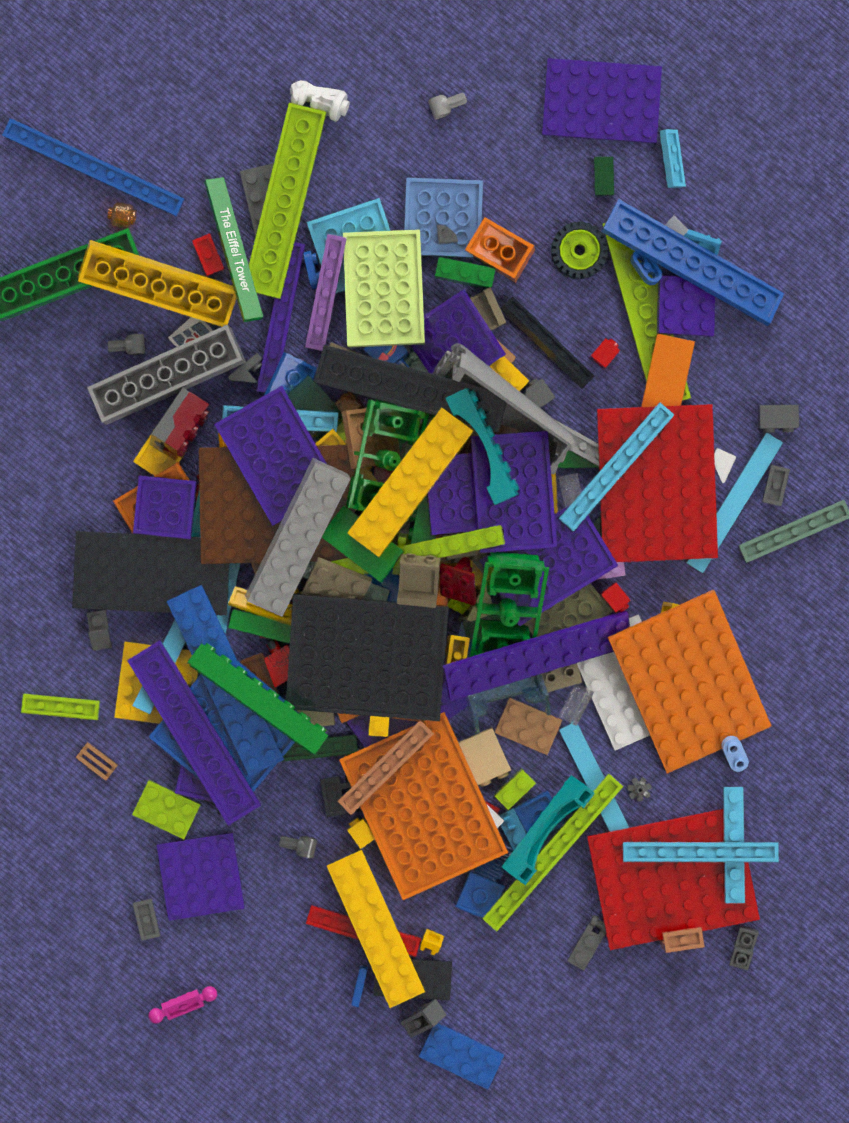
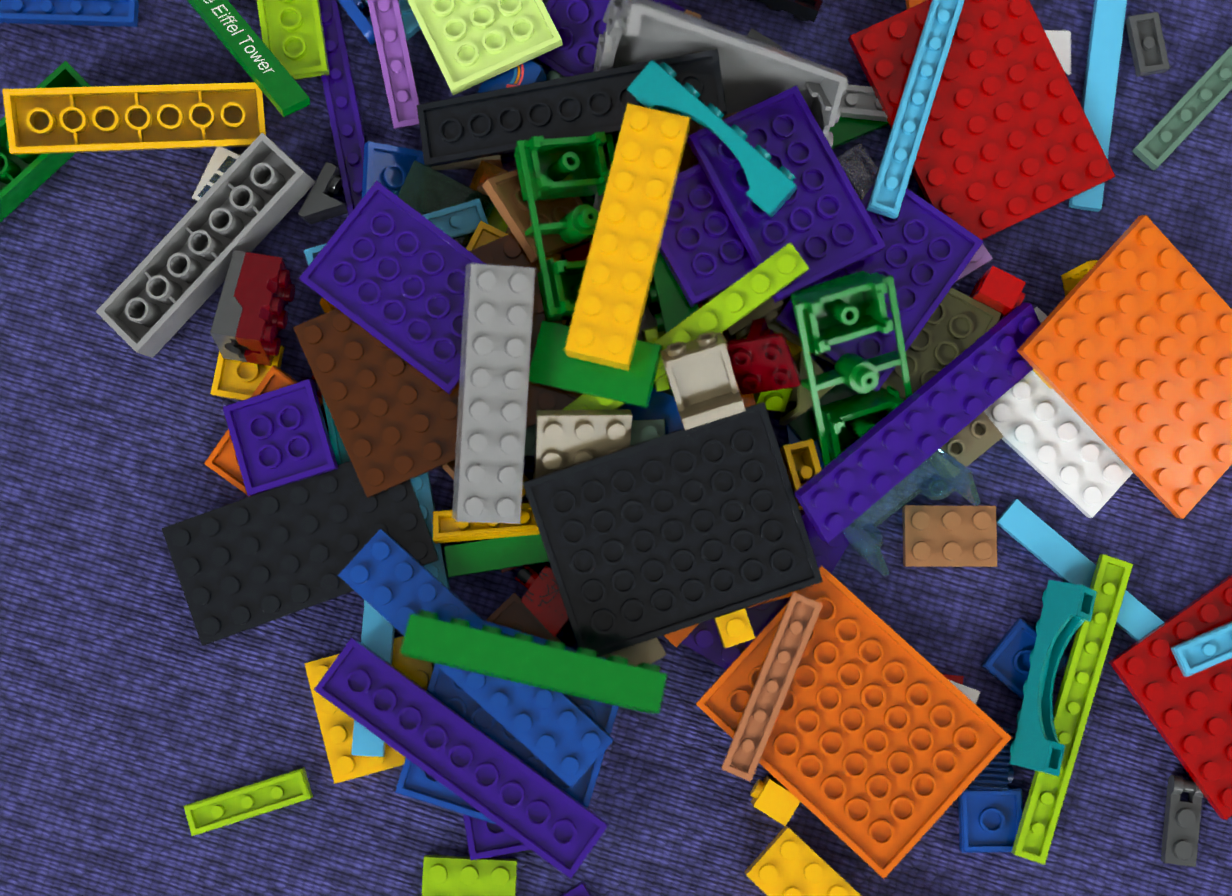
camera: 20 degrees left, 5 degrees down
(92, 767) = (330, 872): medium nougat tile -> none
(99, 630) = (260, 662): dark grey slope -> none
(122, 215) = (54, 50): clear orange head -> none
(133, 345) = (143, 227): dark grey axle -> none
(208, 255) = (202, 58): red plate -> none
(304, 846) = (698, 857): dark grey axle -> none
(331, 747) = (678, 689): dark green tile -> none
(332, 793) = (707, 760): black plate -> none
(485, 757) = (910, 606): tan brick -> none
(512, 827) = (996, 697): dark azure plate -> none
(515, 789) = (973, 636): lime brick -> none
(576, 704) = (1006, 473): clear plate -> none
(635, 789) = (1151, 559): dark grey plant -> none

